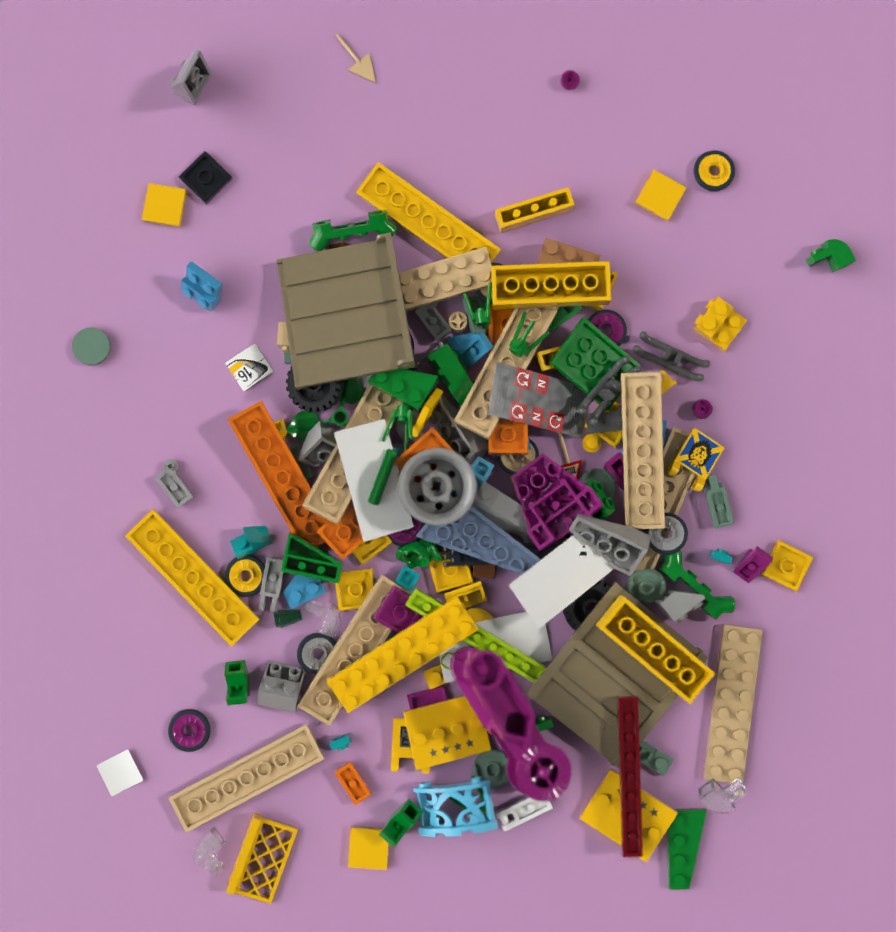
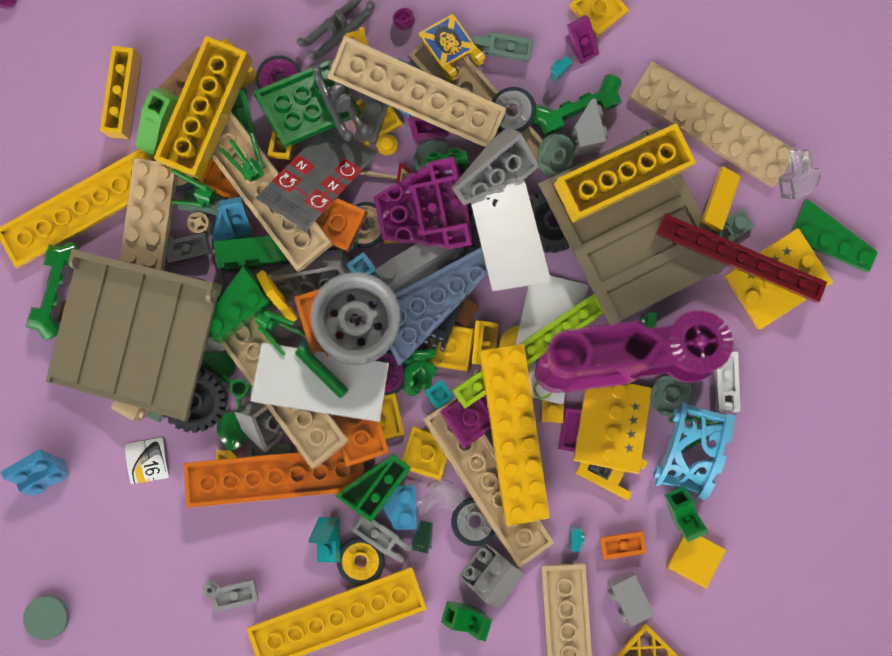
camera: 70 degrees left, 0 degrees up
(312, 809) = (631, 599): none -> light grey brick
(524, 251) = (154, 119): none -> bright green slope
(672, 738) = (720, 199): none -> yellow tile

